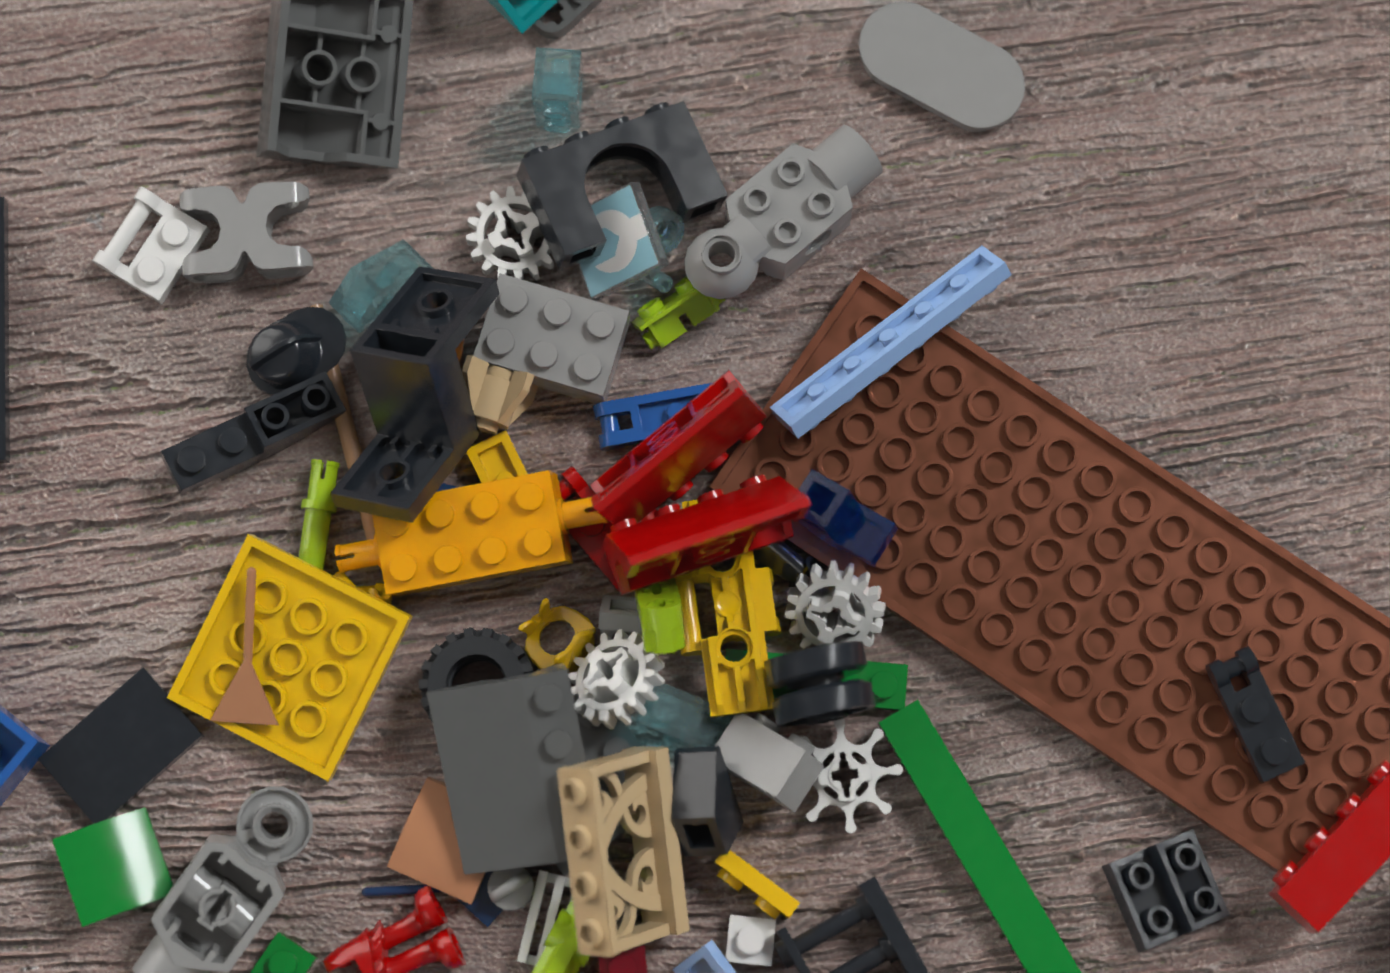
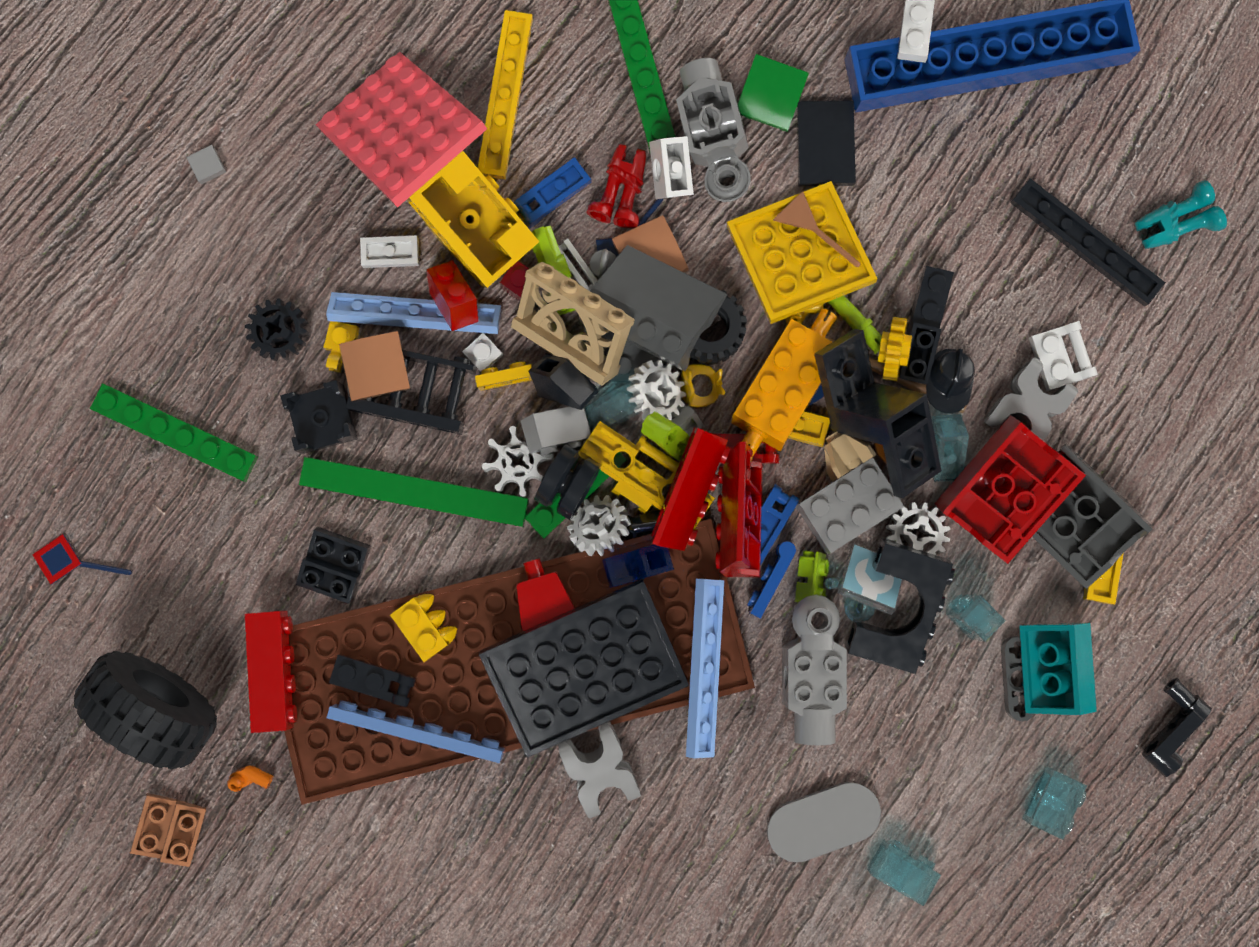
camera: 130 degrees right, 5 degrees up
(318, 440) = (895, 348): none -> yellow gear
(319, 905) = (671, 167): none -> white brick
(372, 172) = (1009, 489): none -> red piece
(716, 356) = (772, 577): none -> blue plate
(980, 598) = (541, 596): none -> red torso
(1017, 476) = (584, 668): none -> black plate
(1114, 363) = (599, 770): none -> light grey piece
(1142, 711) = (422, 627): none -> yellow plate
(1273, 622) = (404, 728): none -> medium blue plate

